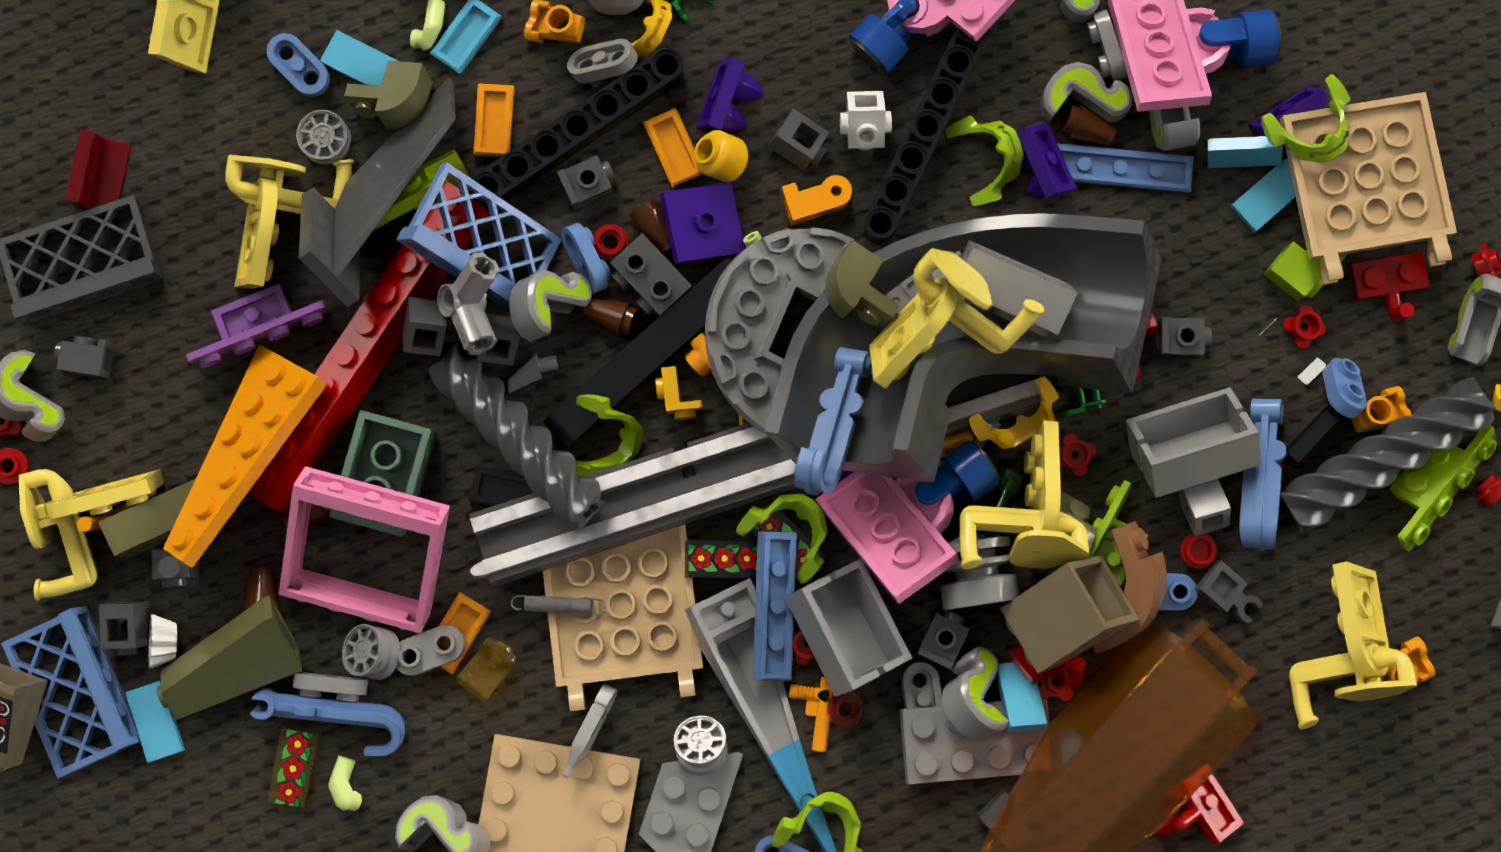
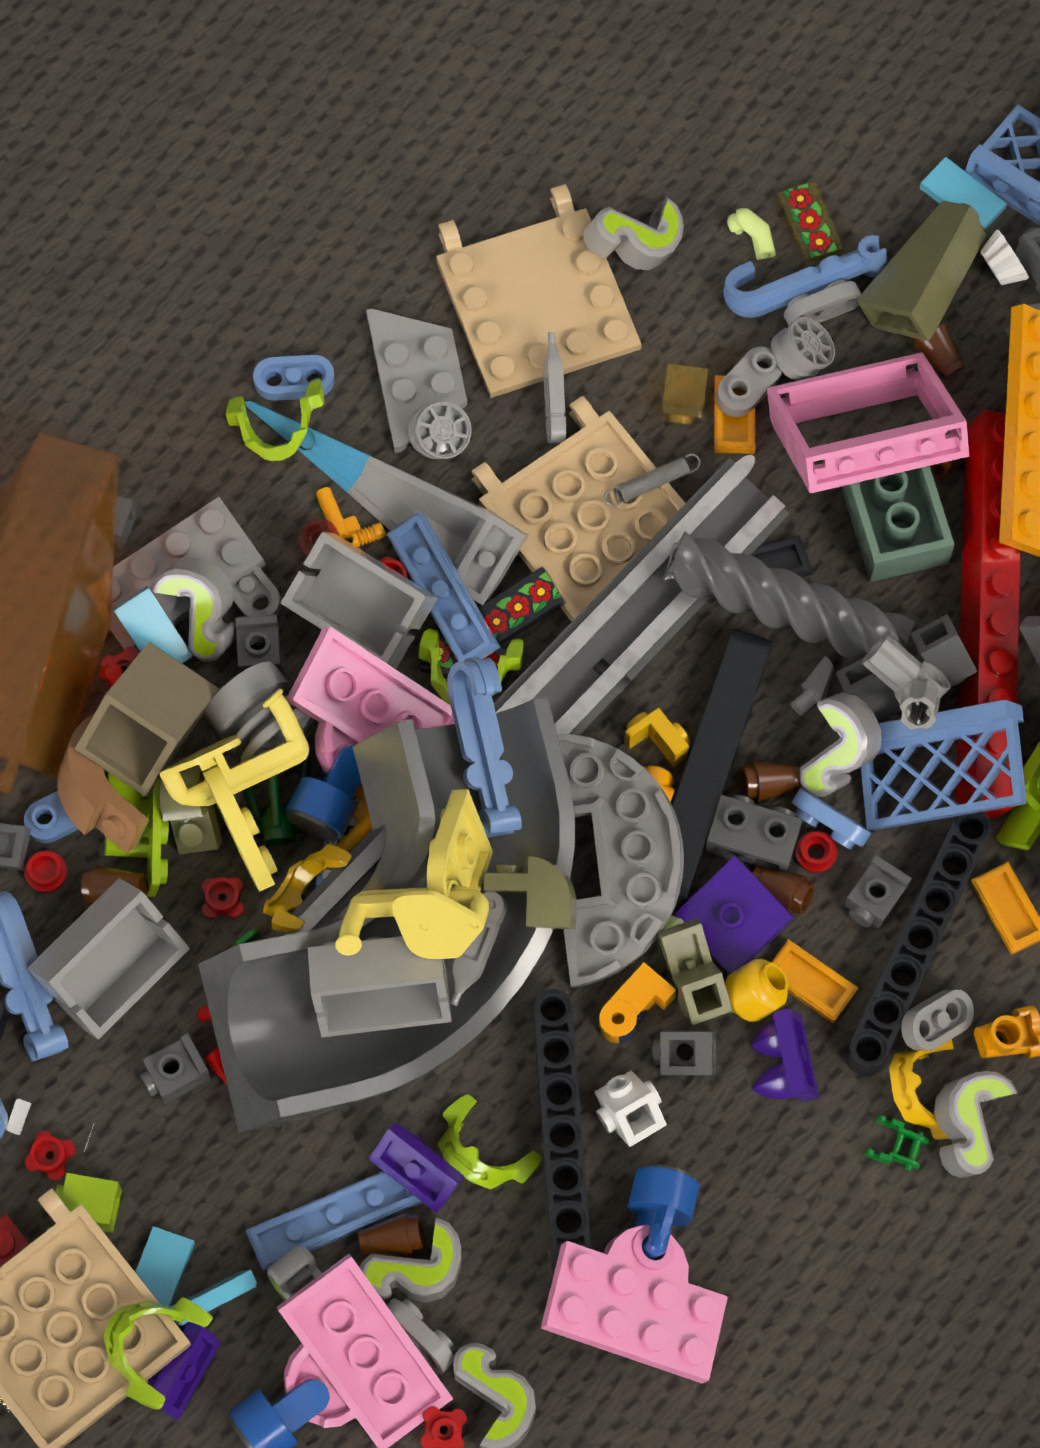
camera: 150 degrees right, 15 degrees down
(631, 435) = (679, 650): lime helmet -> none
(760, 191) = (692, 973): none -> olive brick
(1161, 511) = (100, 878): none -> reddish brown cone
(1205, 507) = (59, 906): light grey brick -> none

